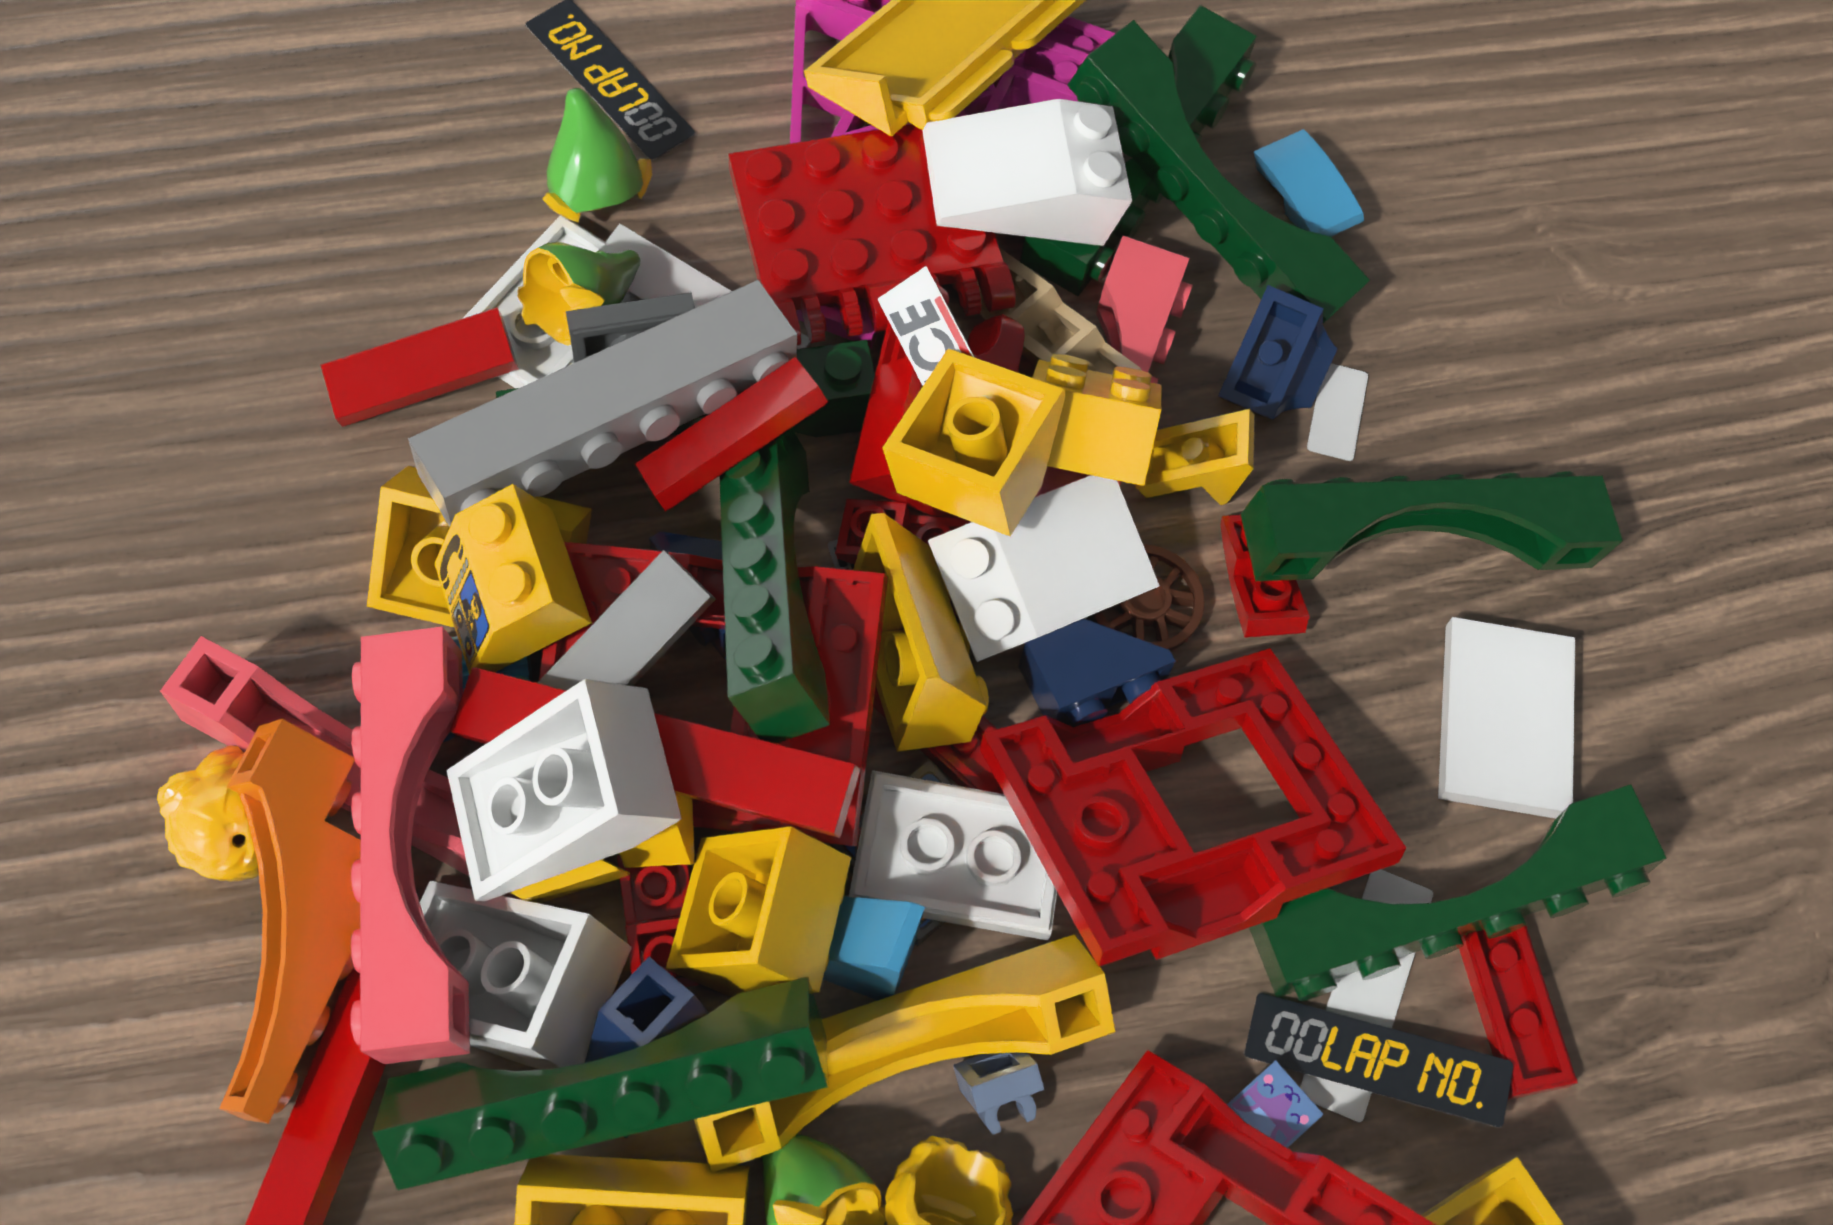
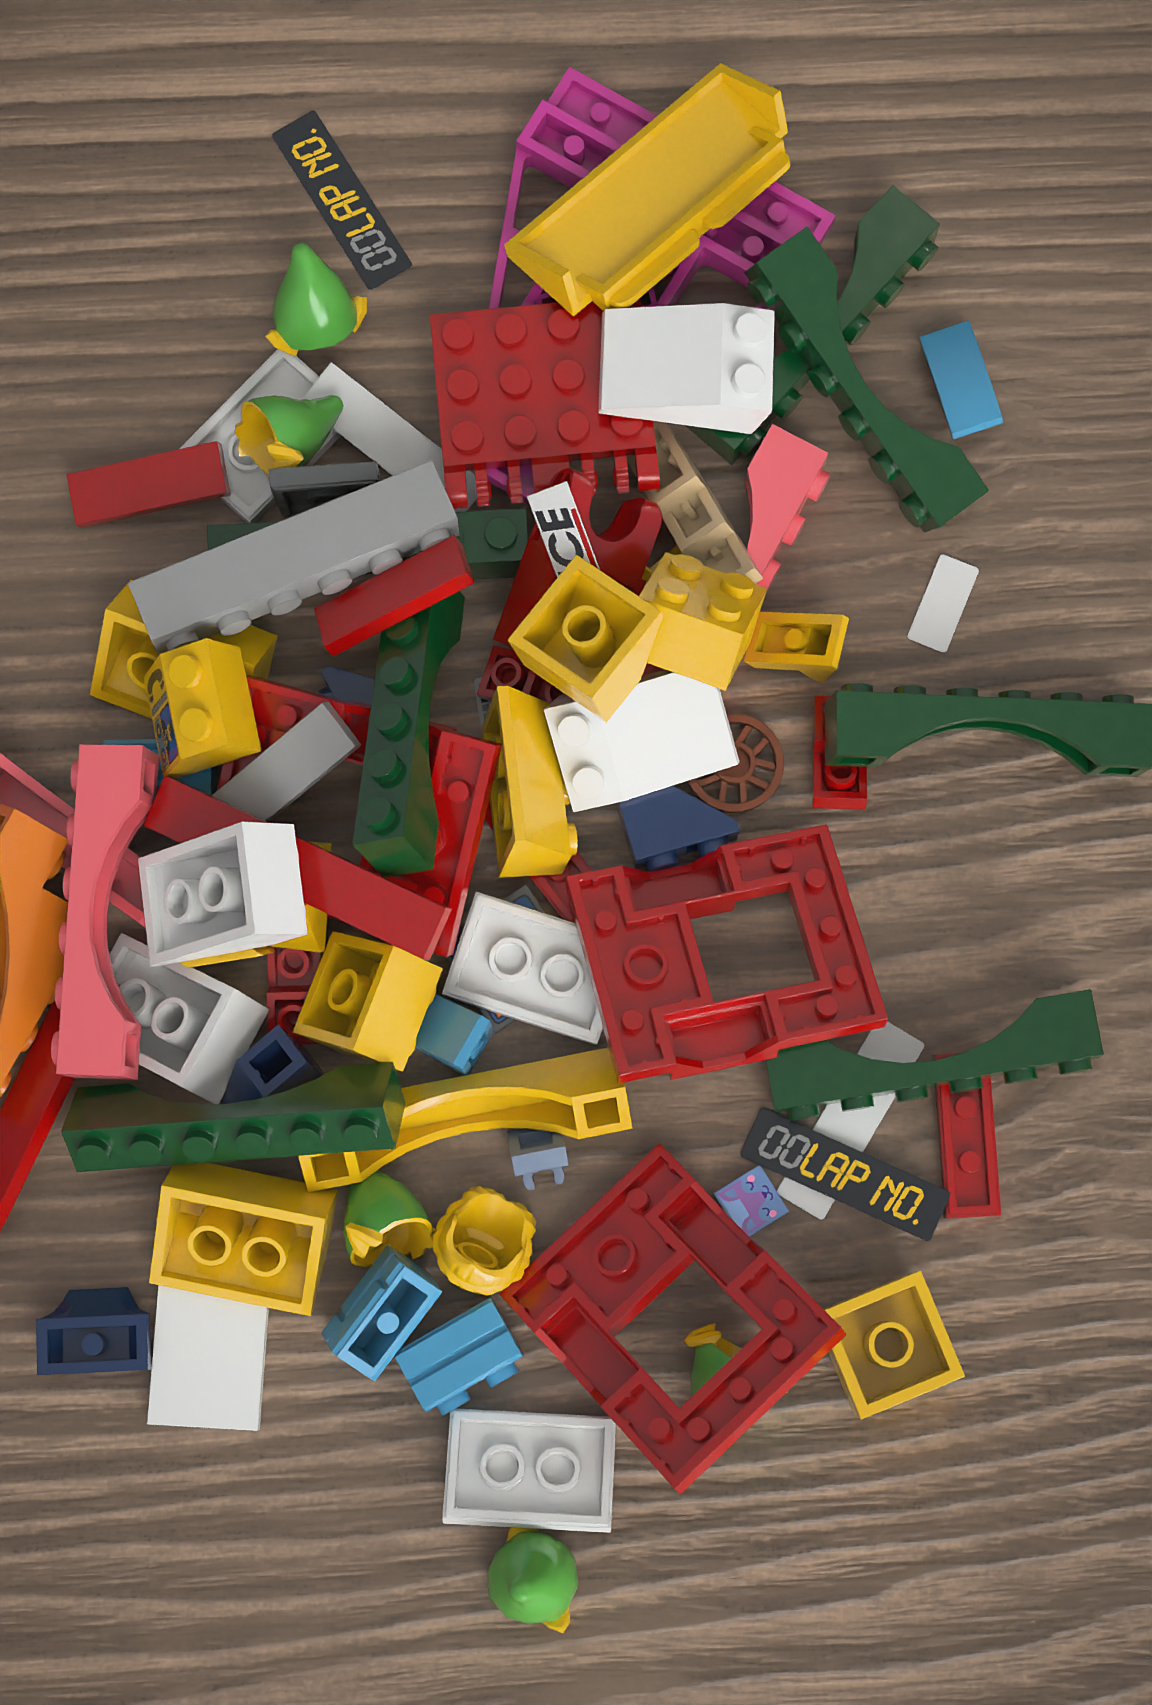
camera: 20 degrees right, 15 degrees up
(1280, 357) = (893, 555): dark blue slope -> none
(1507, 718) = (1022, 905): white tile -> none

